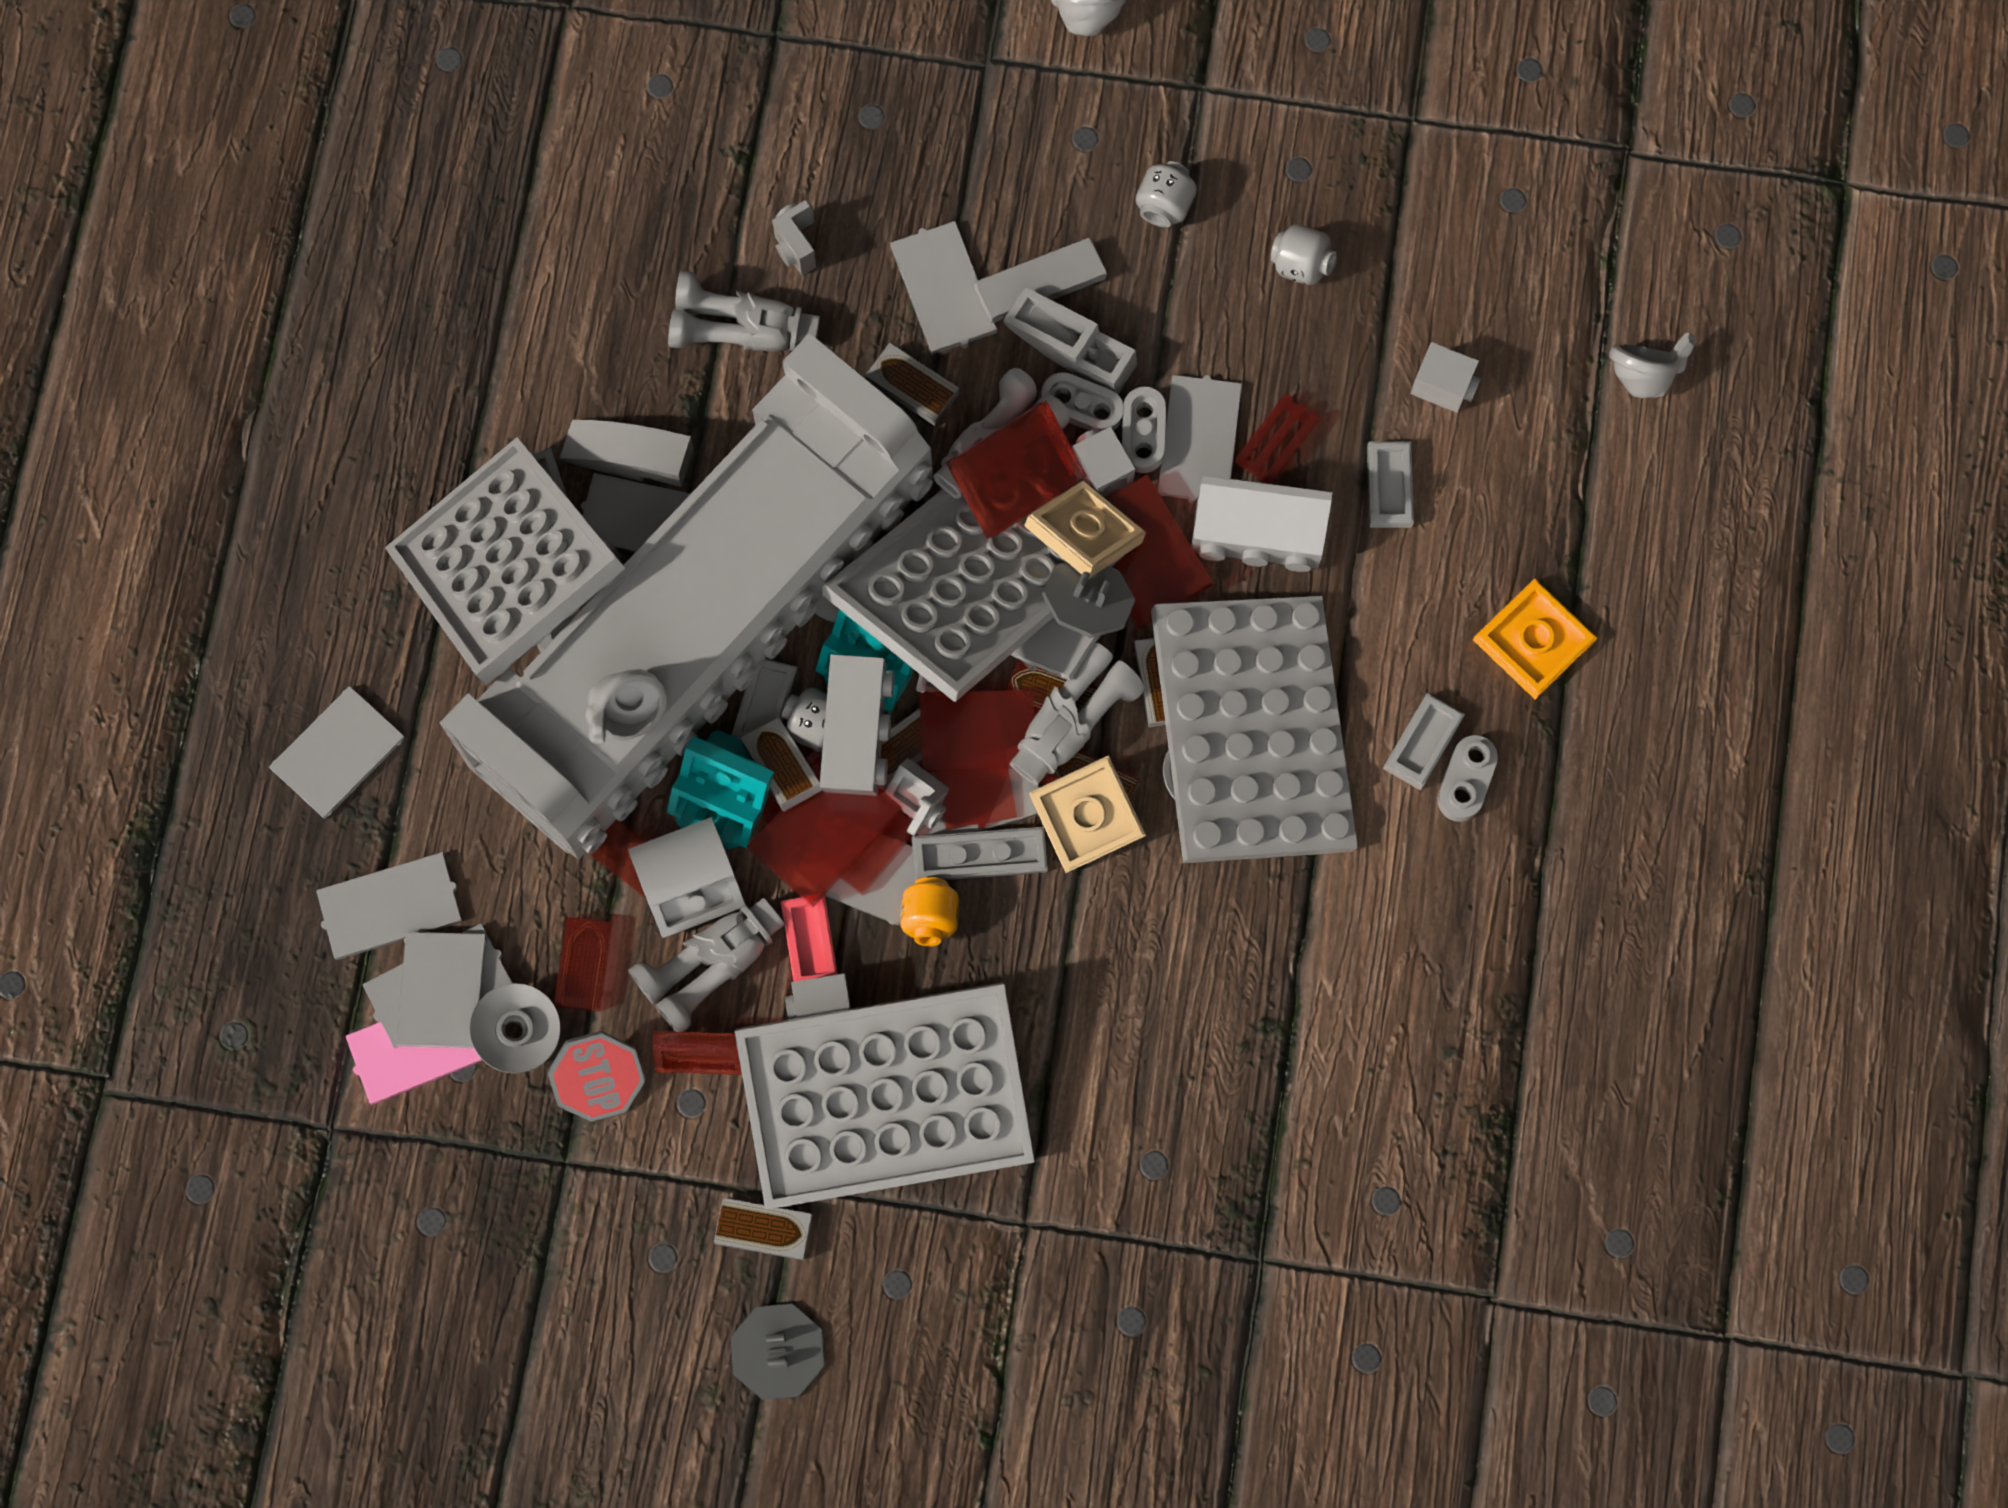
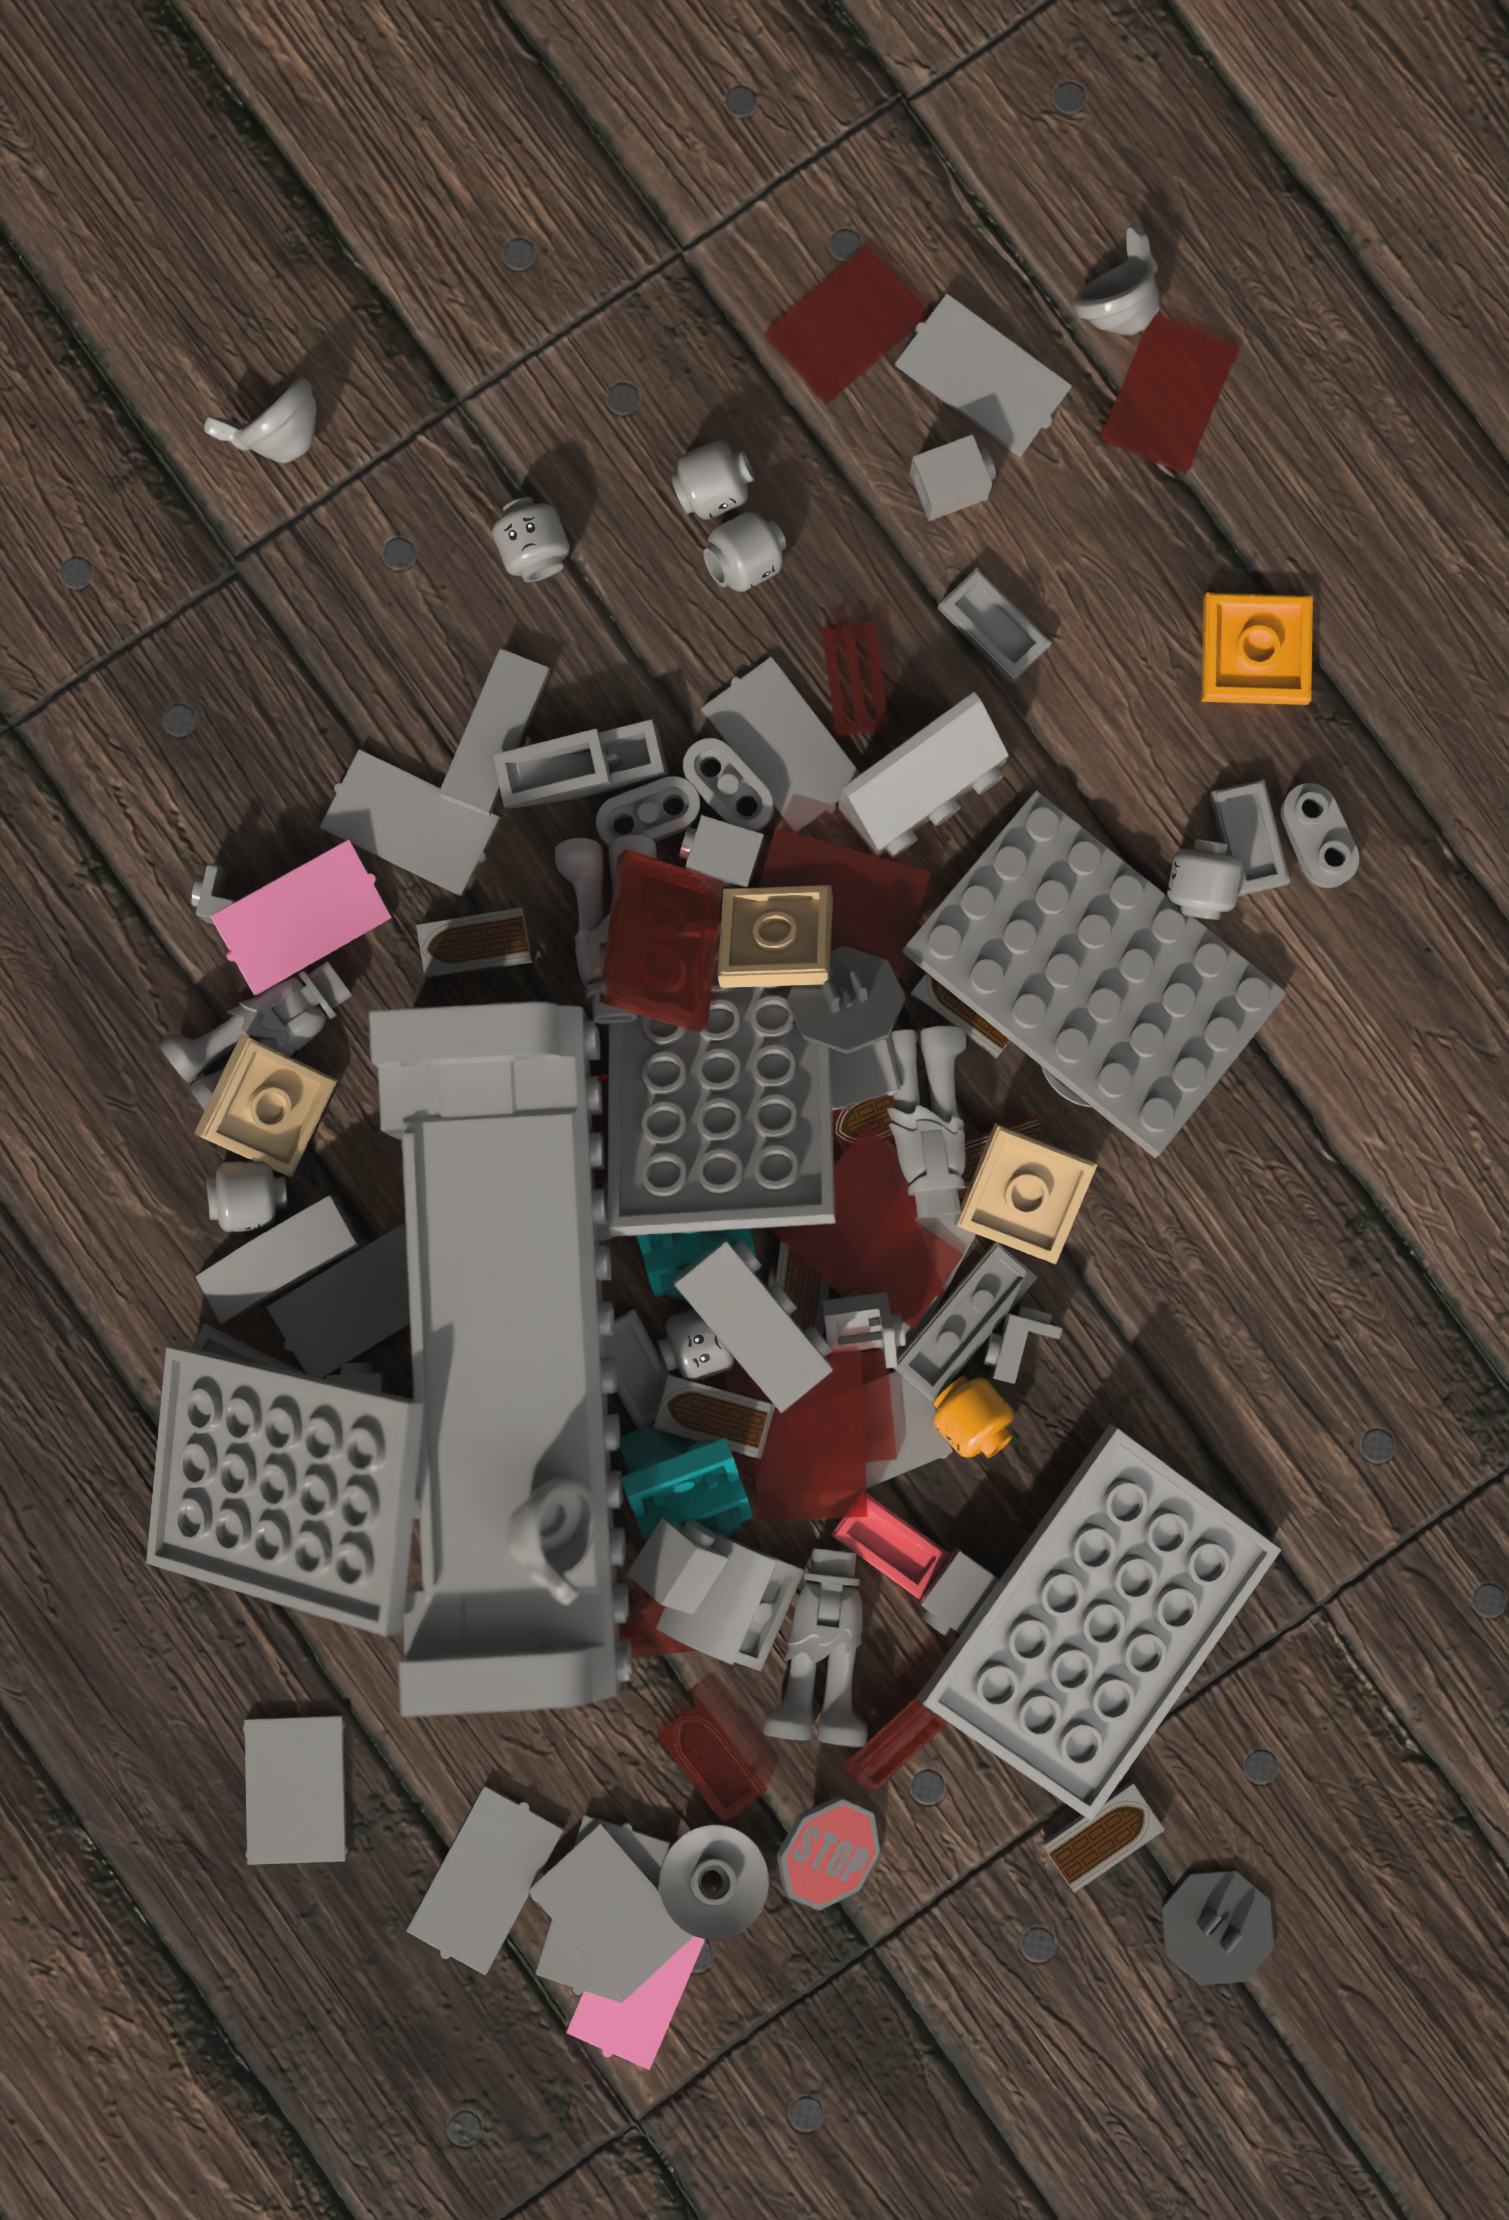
camera: 45 degrees left, 10 degrees up
(644, 398) = (245, 1196): none -> light grey head
(676, 819) = (678, 1564): none -> light grey brick
(705, 360) = (265, 1106): none -> tan tile
(829, 276) = (300, 917): none -> bright pink piece
(987, 891) = (1006, 1350): none -> light grey bracket
(1282, 310) = (744, 551): none -> light grey head
(1371, 736) = (1204, 880): none -> light grey head
(1469, 243) = (846, 325): none -> clear red piece
(1522, 341) = (983, 375): none -> light grey piece
(1624, 450) = (1169, 394): none -> clear red piece

